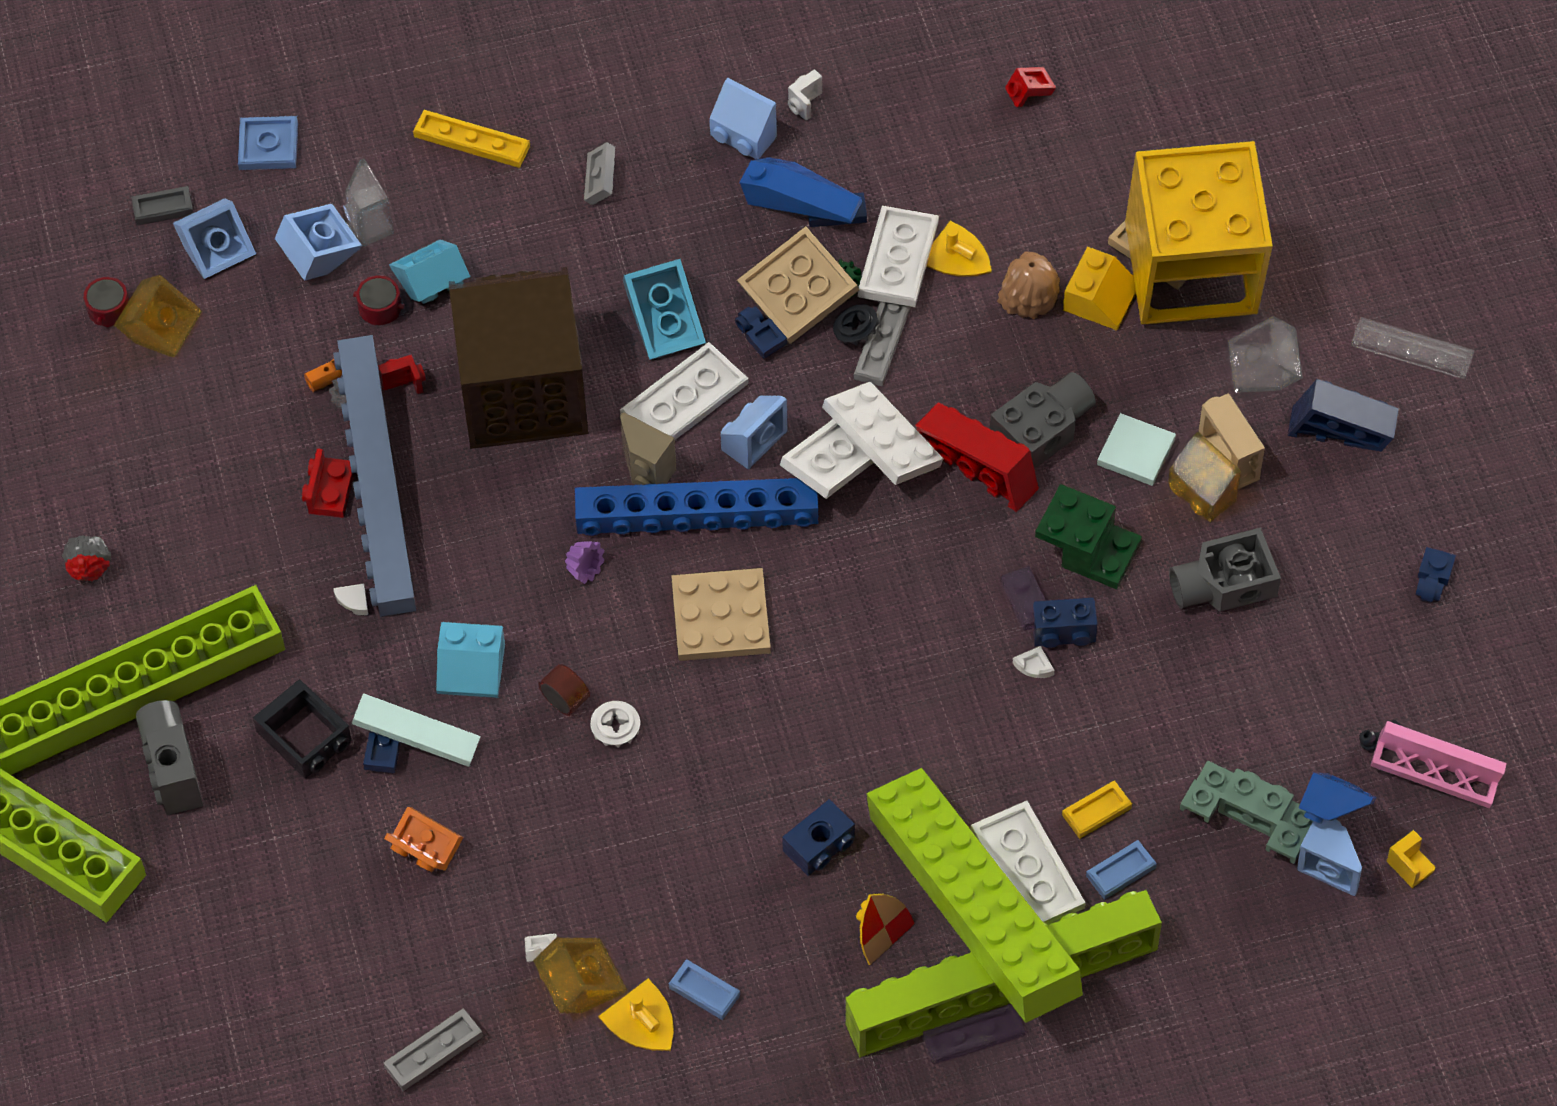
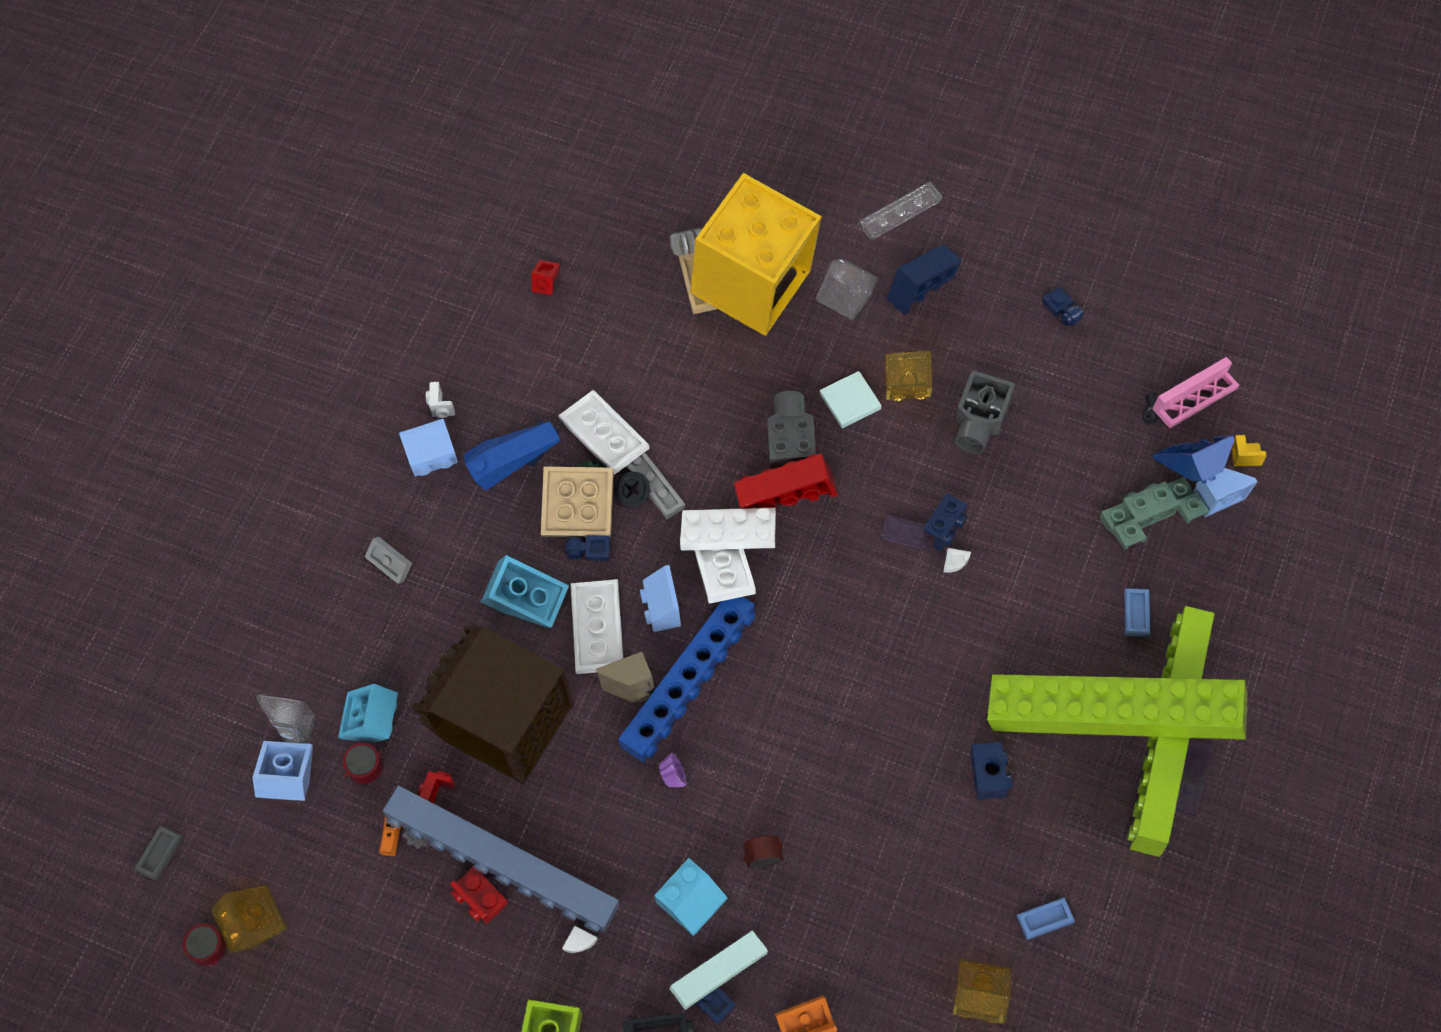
camera: 50 degrees left, 5 degrees up
(214, 238) = (218, 836): light blue slope -> none
(268, 143) = (172, 749): medium blue tile -> none
(471, 138) = (287, 619): yellow tile -> none
(536, 944) = (941, 1003): white tile -> none
(625, 715) = (805, 826): white gear -> none
(641, 1018) = (1037, 973): yellow shield -> none
(720, 614) = (776, 716): tan plate -> none
(882, 924) = (1082, 777): shield -> none
(958, 253) = (627, 397): yellow shield -> none
(1029, 286) = (693, 375): medium nougat hair -> none
(1030, 861) = (1096, 657): white plate -> none
(1088, 536) = (896, 466): dark green bracket -> none
(1097, 809) = (1084, 596): yellow tile -> none
(1100, 289) = (723, 340): yellow slope -> none
(1233, 436) = (891, 338): tan window -> none

